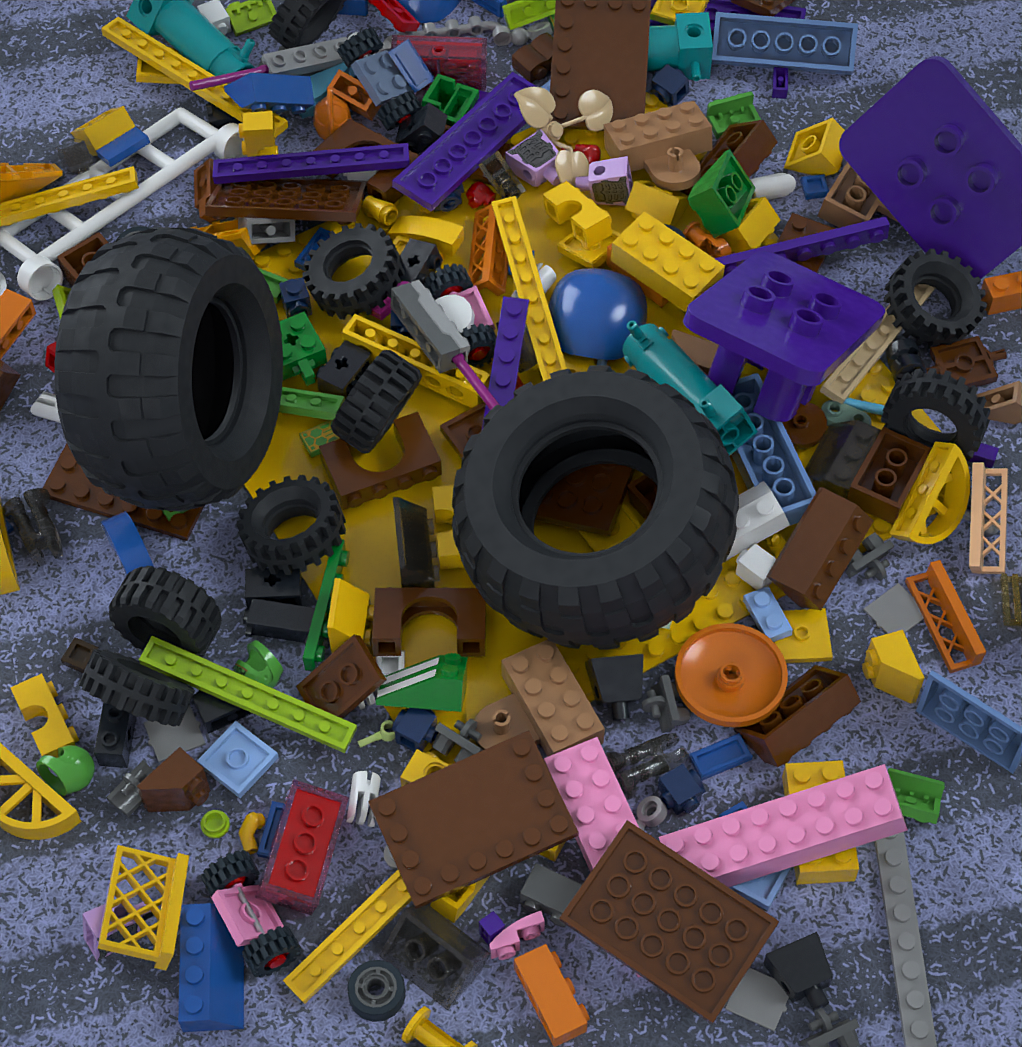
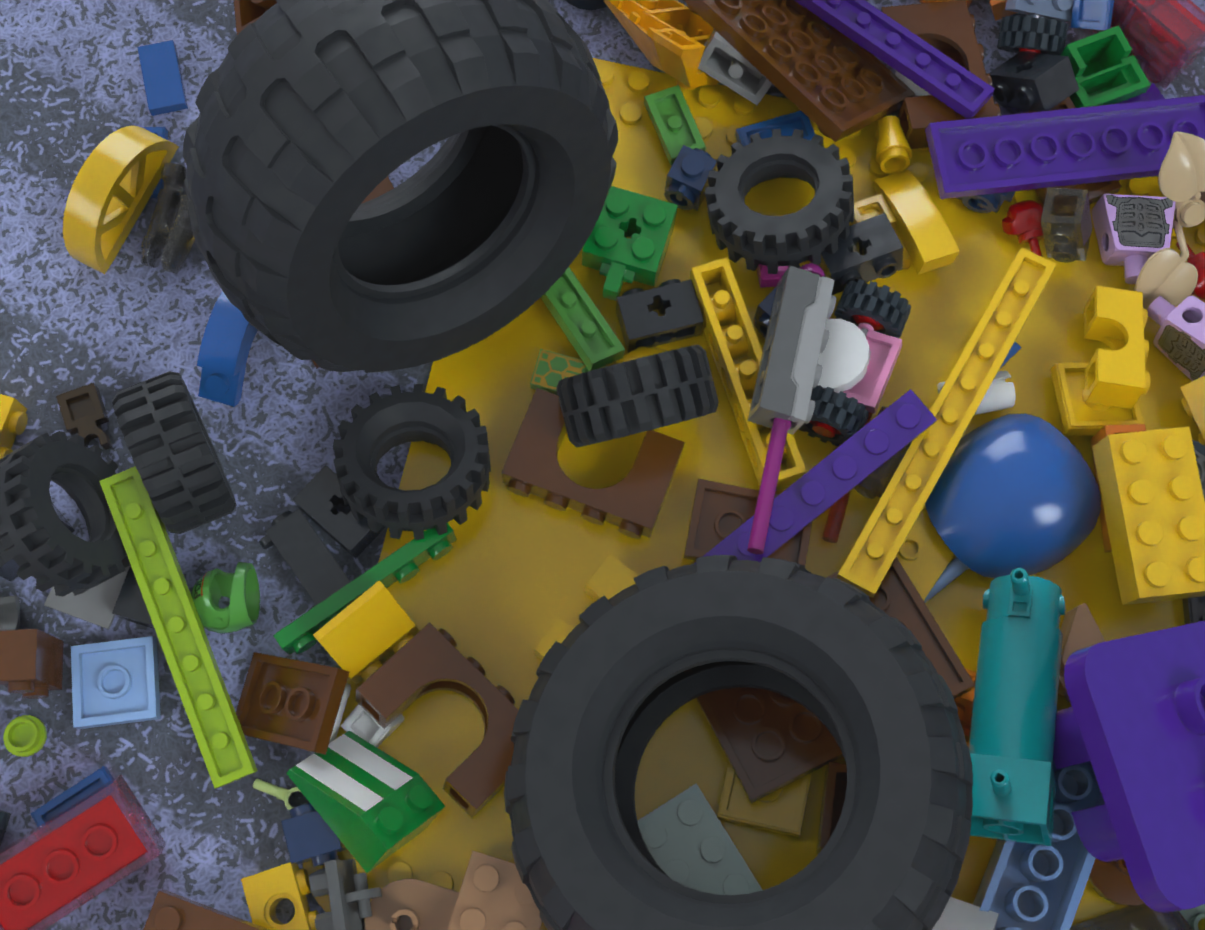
camera: 40 degrees right, 15 degrees up
(247, 830) = (47, 776): yellow arm -> none
(363, 791) = (194, 847): white arm -> none
(414, 545) = (521, 609): clear smoke slope -> none
(494, 263) = (955, 325): orange fence -> none

